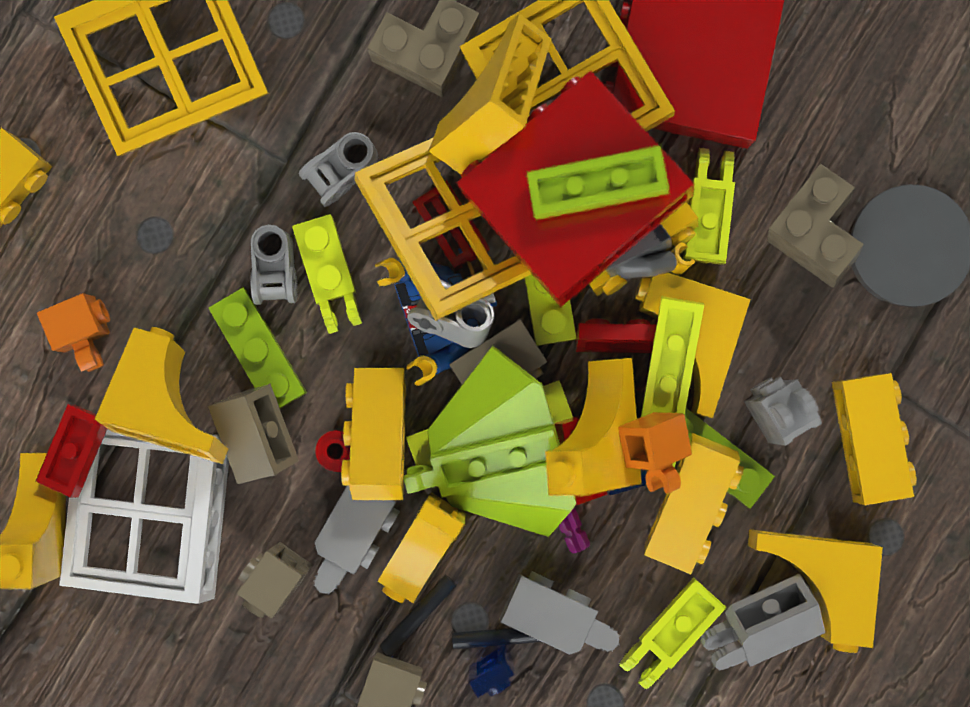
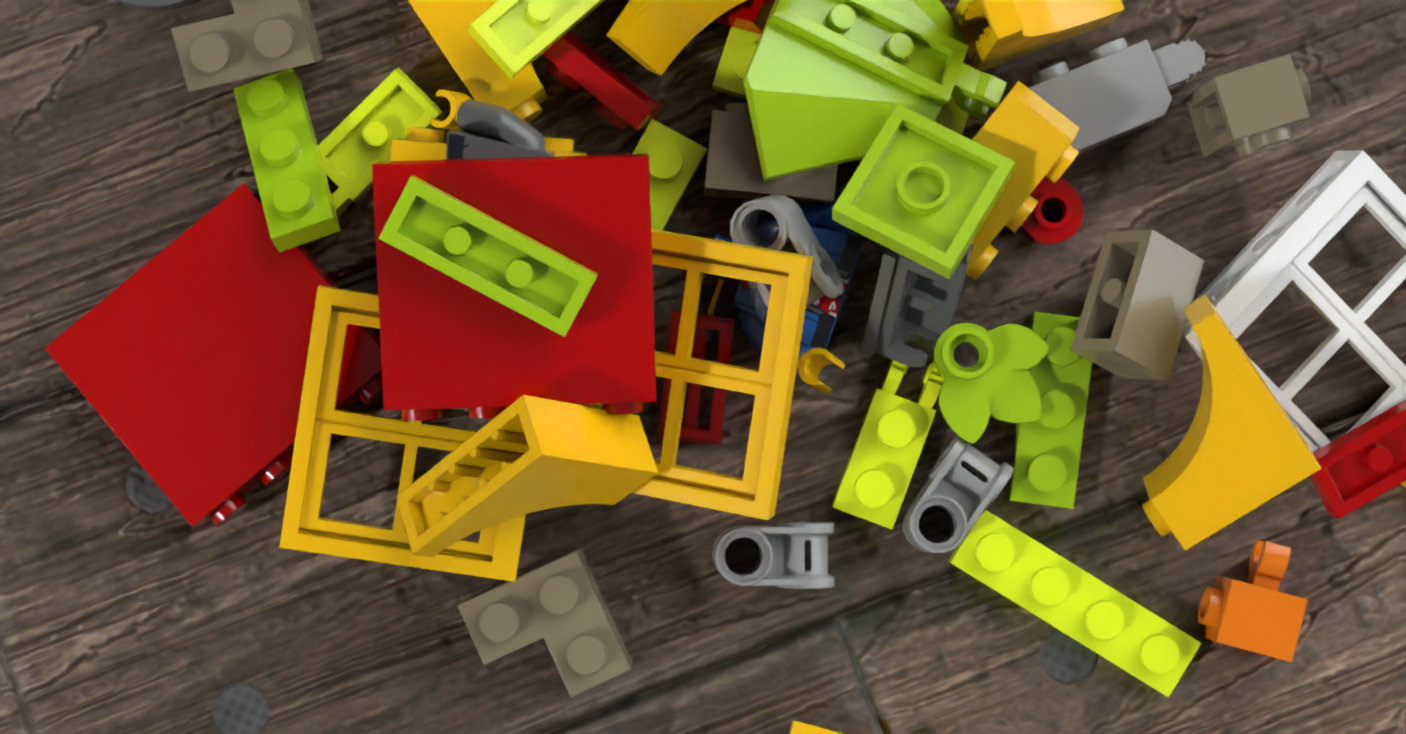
camera: 135 degrees left, 0 degrees up
(170, 262) = (1075, 603): none -> neon yellow plate
(296, 338) = (996, 383): none -> lime plate
(370, 350) = (911, 306): none -> dark grey hinge
(405, 398) = (923, 191): none -> lime plate
(742, 169) = (286, 160): none -> lime plate

